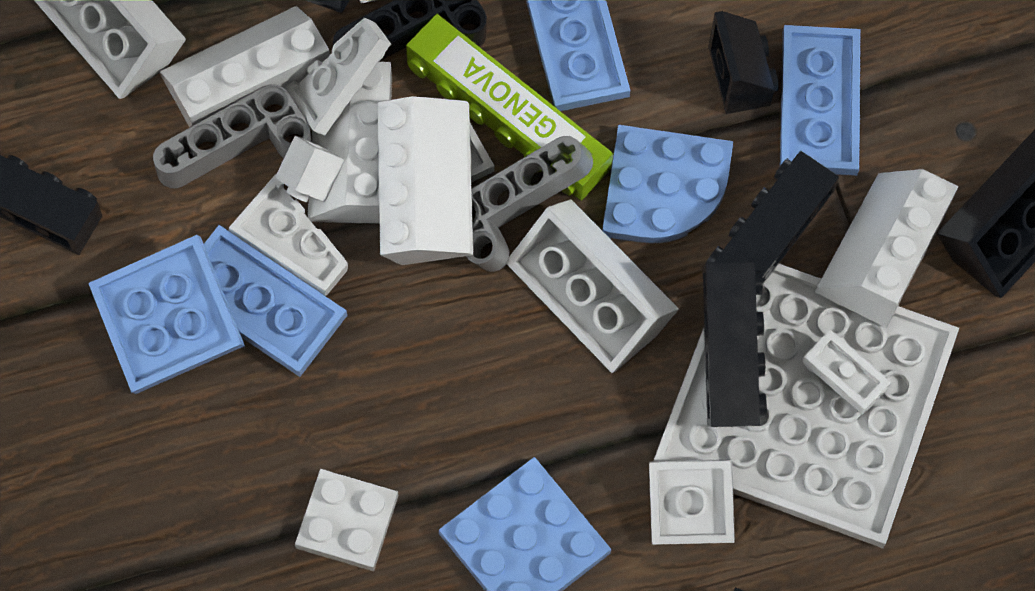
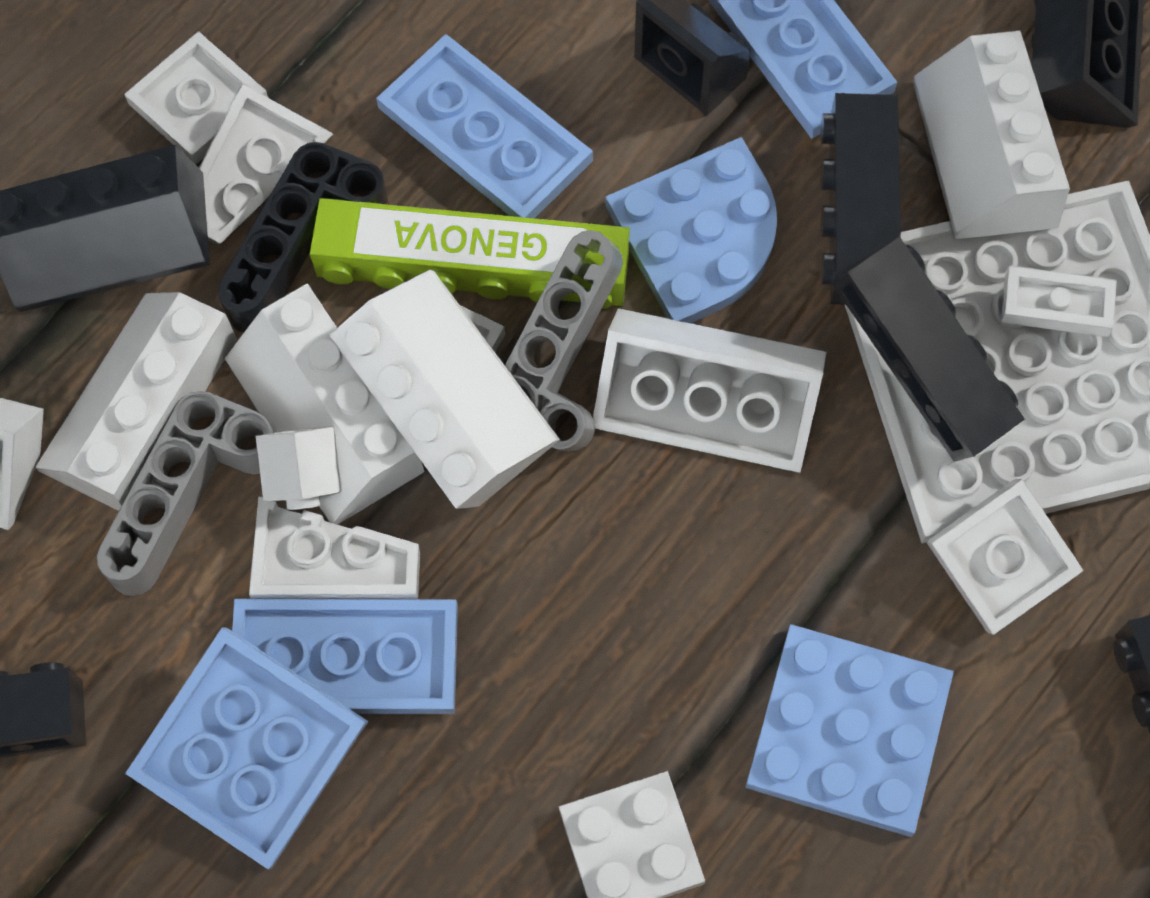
camera: 30 degrees left, 0 degrees up
(337, 79) = (260, 339): white wing -> none

